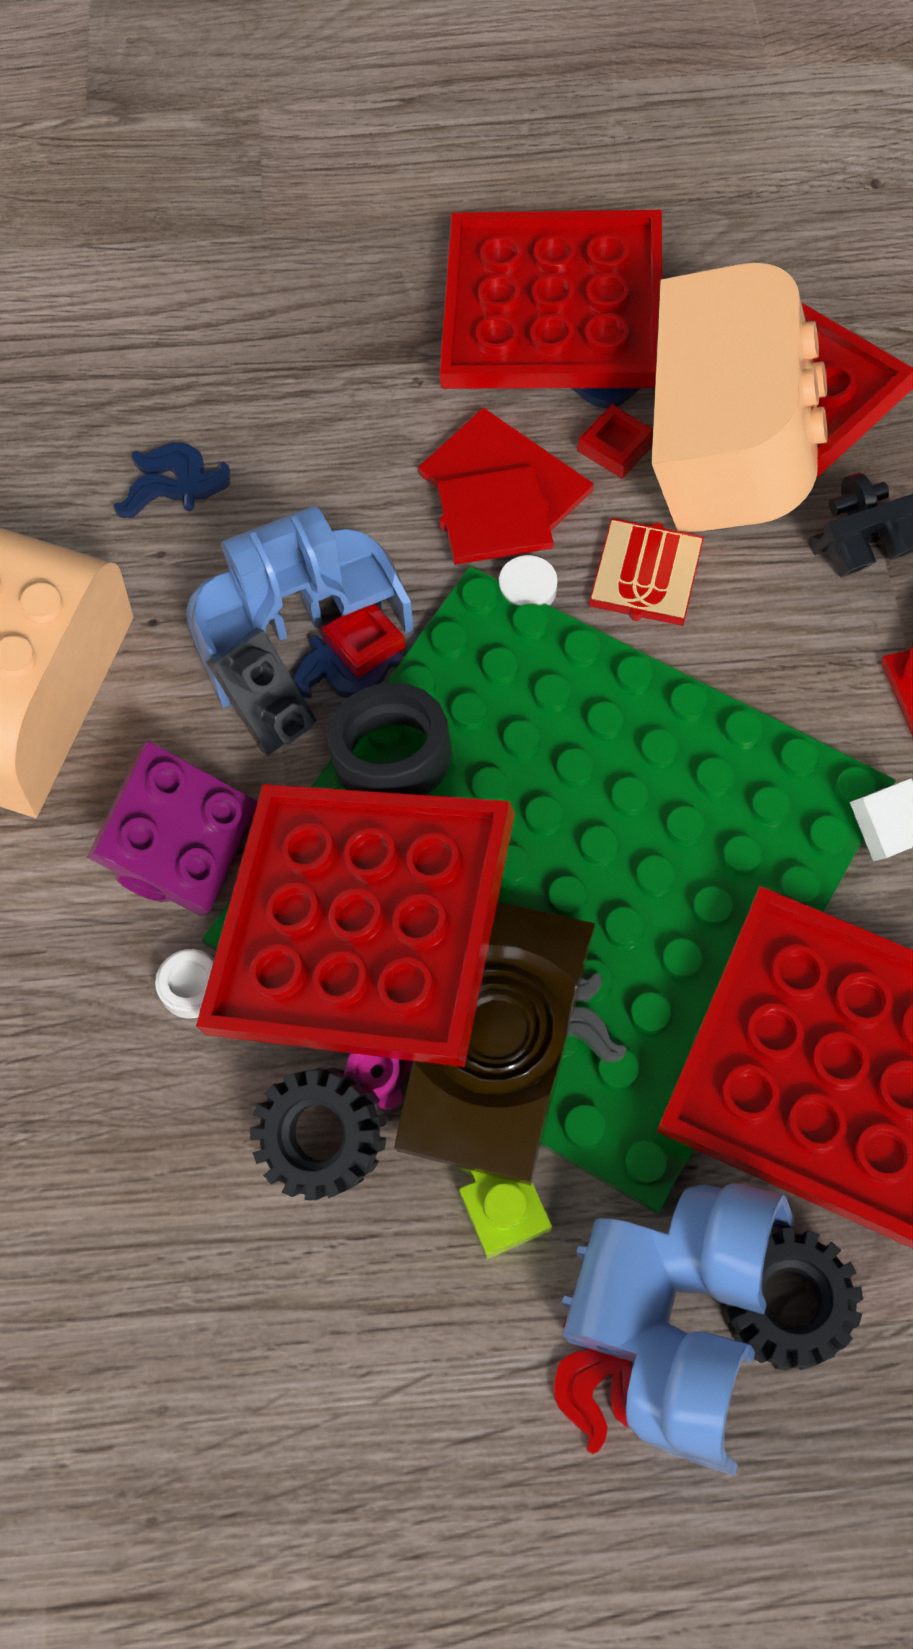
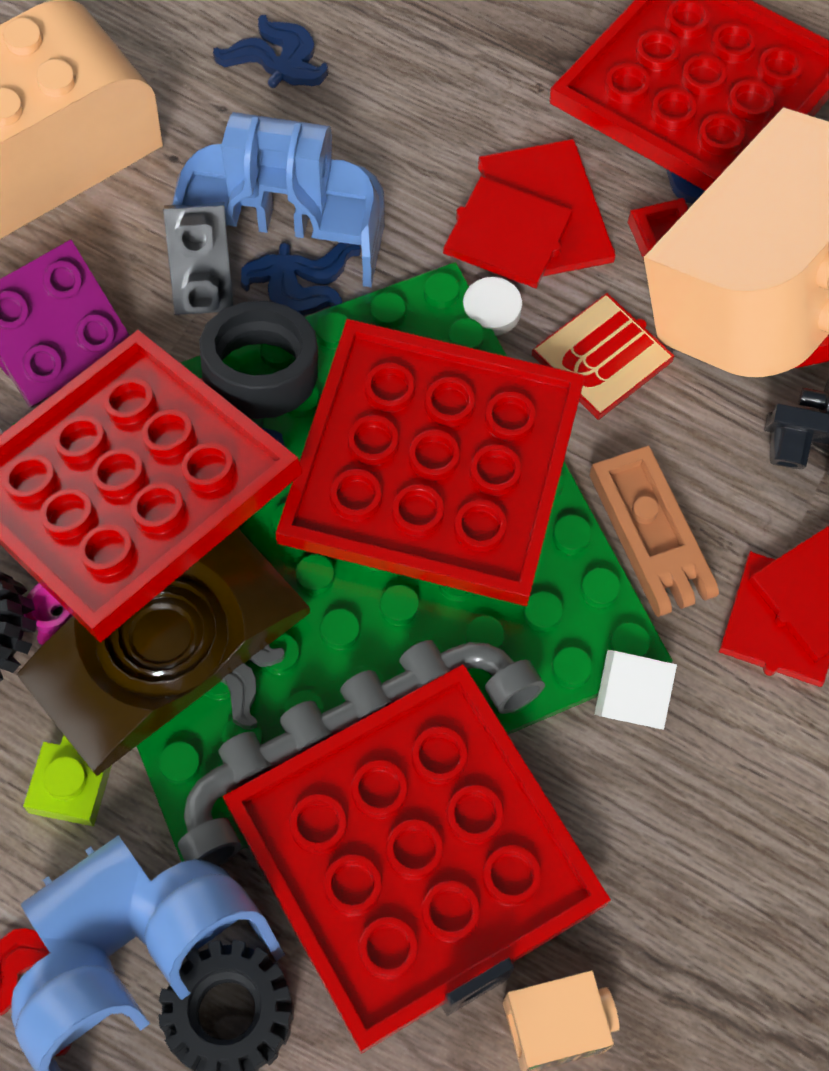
camera: 30 degrees right, 0 degrees up
(363, 639) = (318, 268): red tile -> none
(598, 738) = (433, 462): none -> red plate
(677, 1023) = (305, 726): none -> dark grey bar
(804, 686) = (652, 530): none -> nougat hinge

